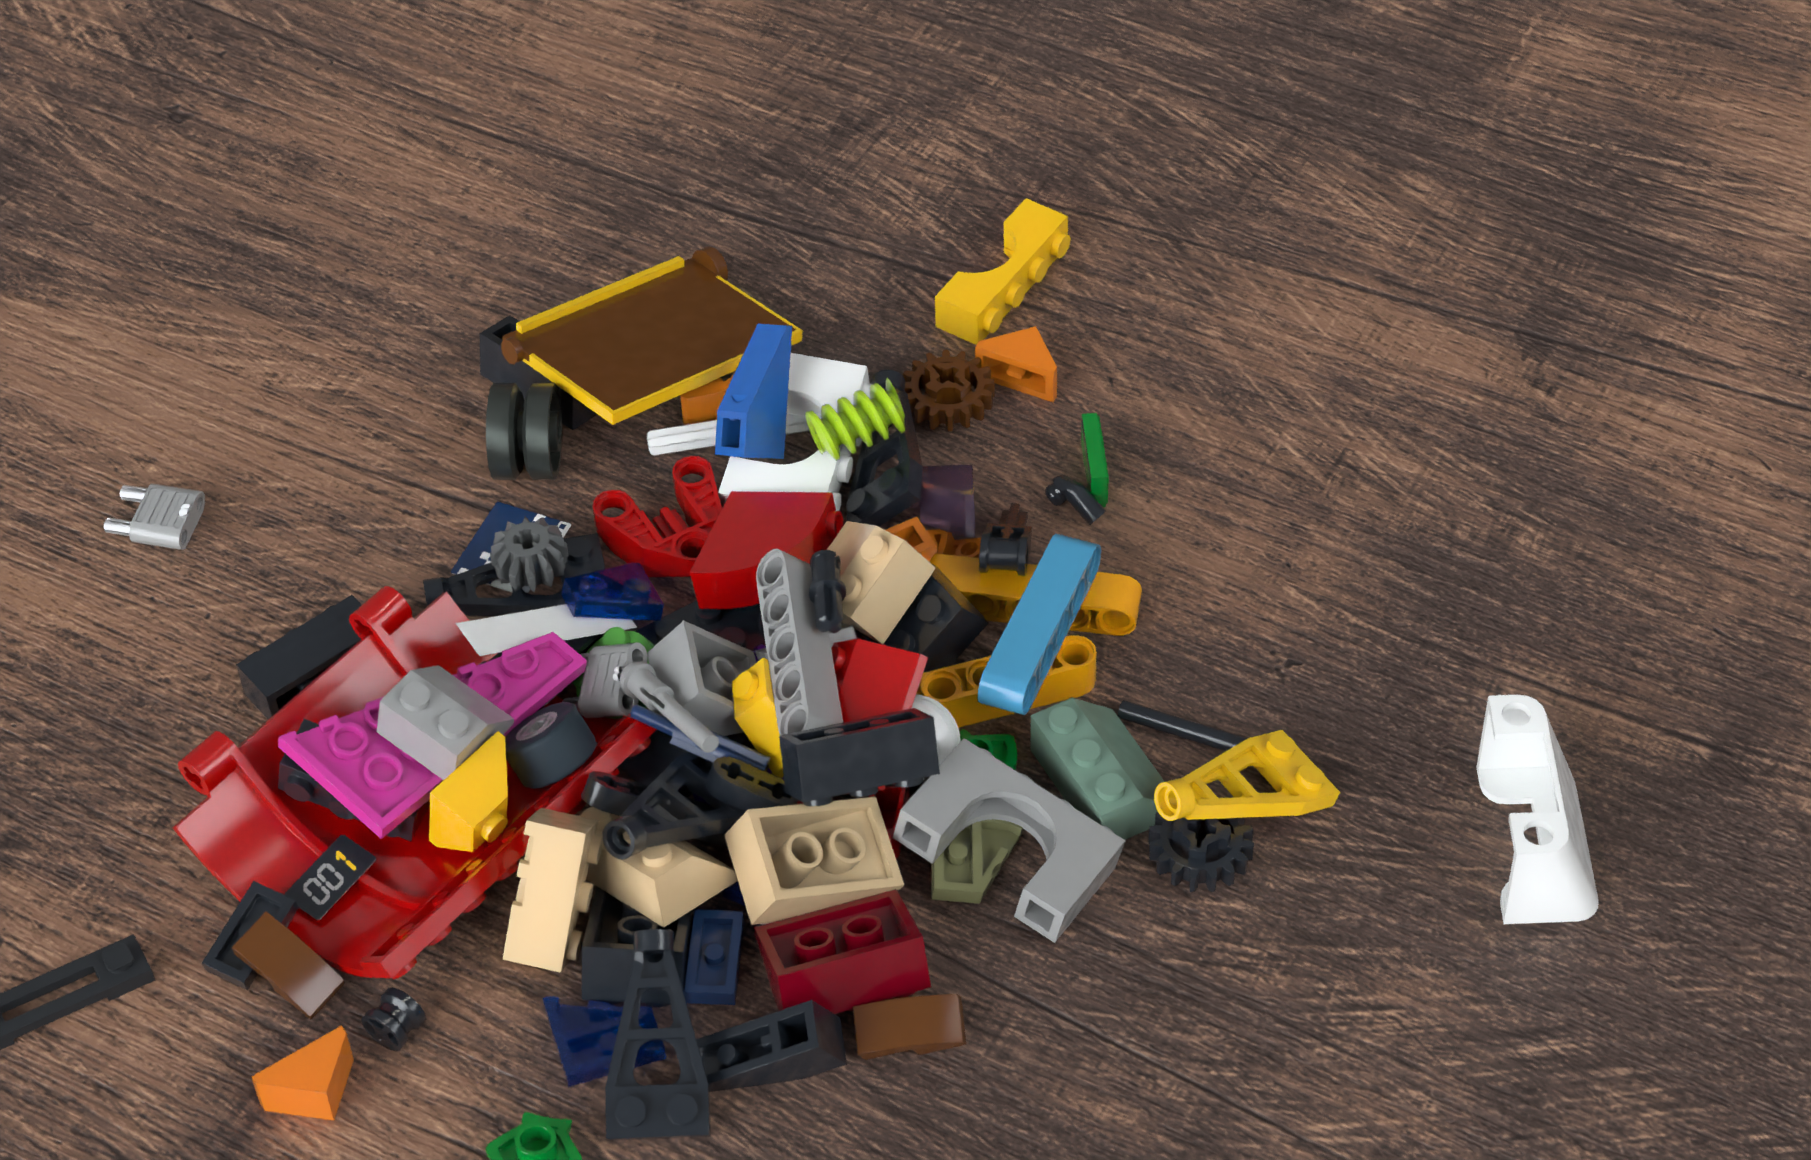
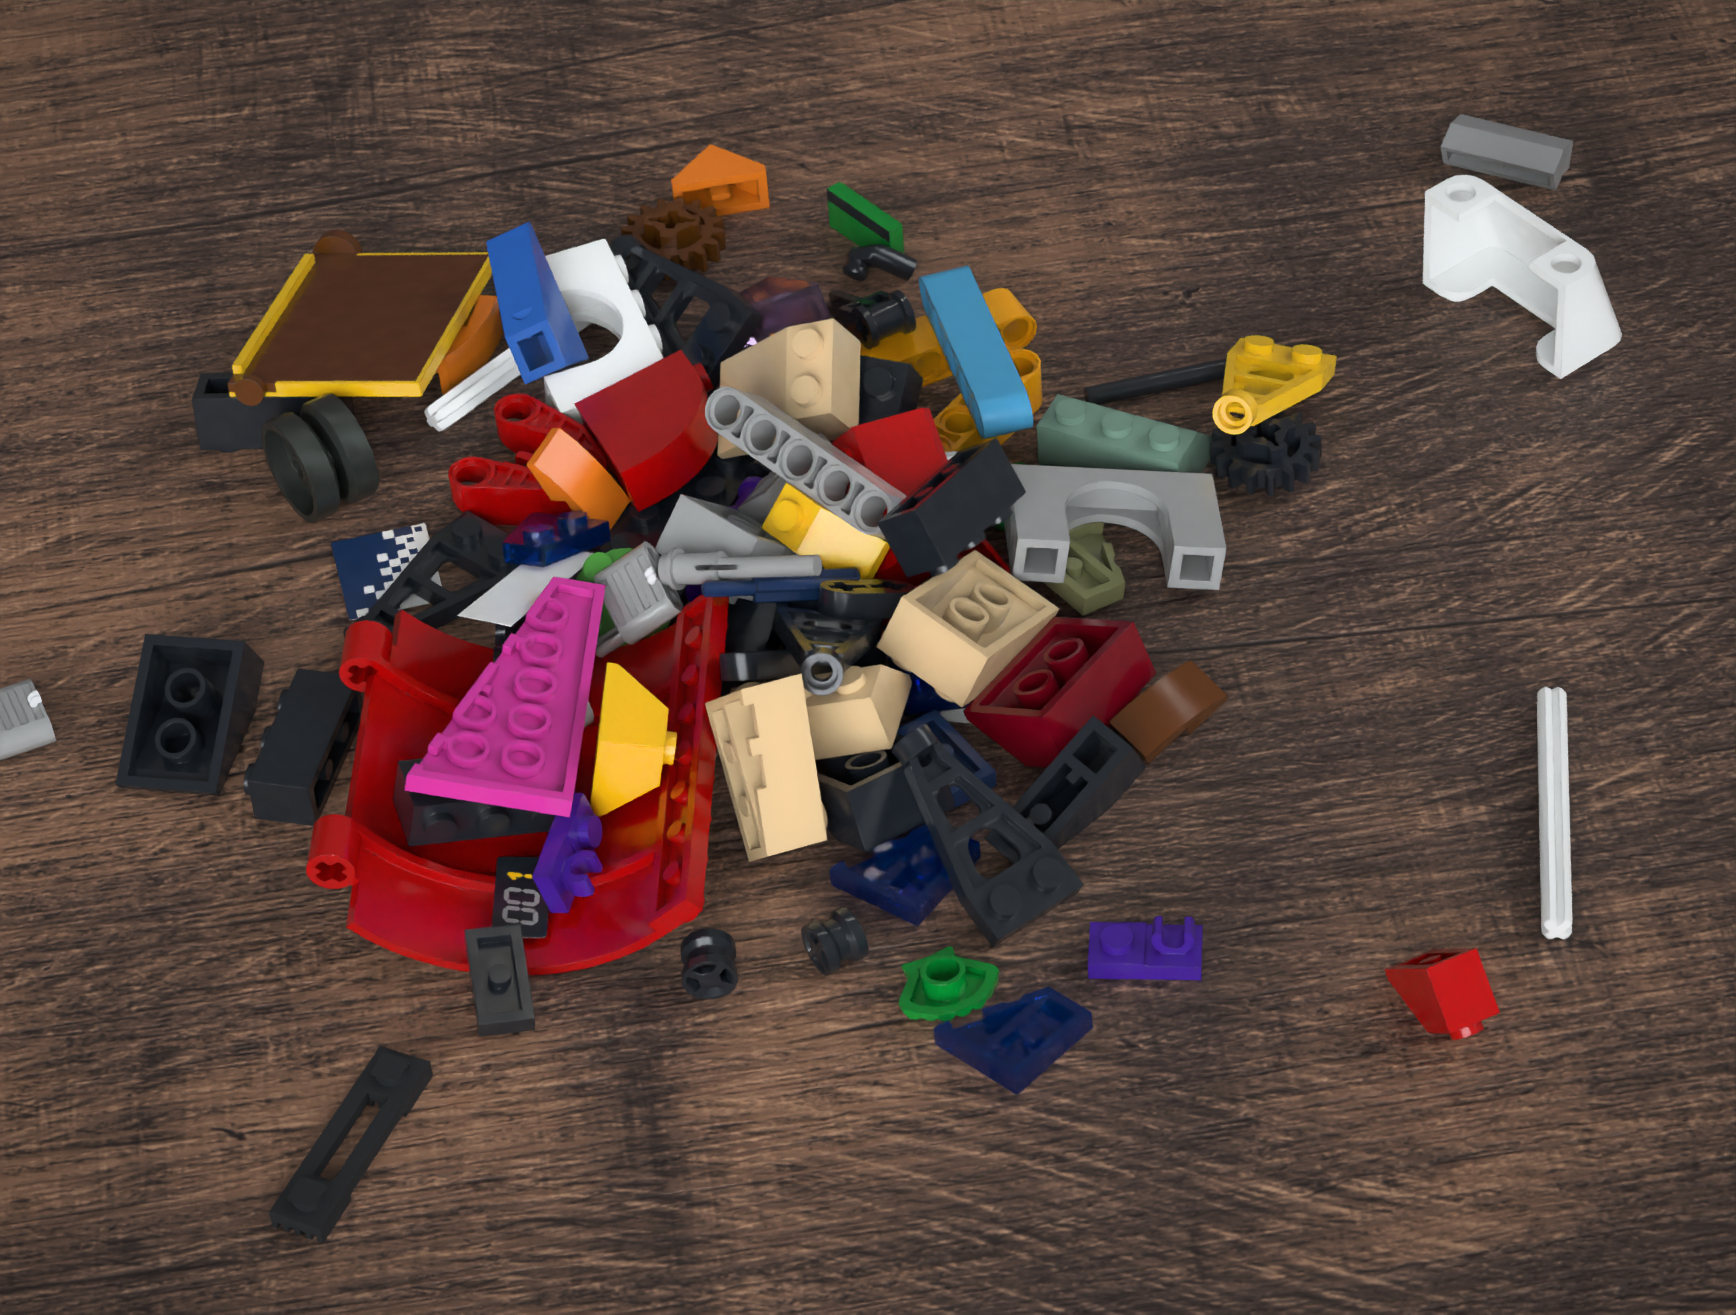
camera: 35 degrees left, 5 degrees down
(265, 586) = (188, 713): none -> black slope
(288, 965) = (563, 971): reddish brown slope -> none
(309, 1079) = (684, 1053): orange slope -> none
(374, 865) = (569, 856): none -> dark purple plate
(438, 719) = (545, 690): light grey slope -> none
(492, 1060) = (834, 941): none -> black wheel
(529, 554) = (435, 549): dark grey gear -> none
(549, 745) = (649, 654): black wheel -> none
(664, 558) = (575, 476): none -> orange slope
(827, 590) = (796, 398): black axle -> none
(857, 420) = (650, 279): lime piece -> none
(977, 302) = (624, 155): yellow arch -> none
(1657, 687) = (1506, 151): none -> light grey piece

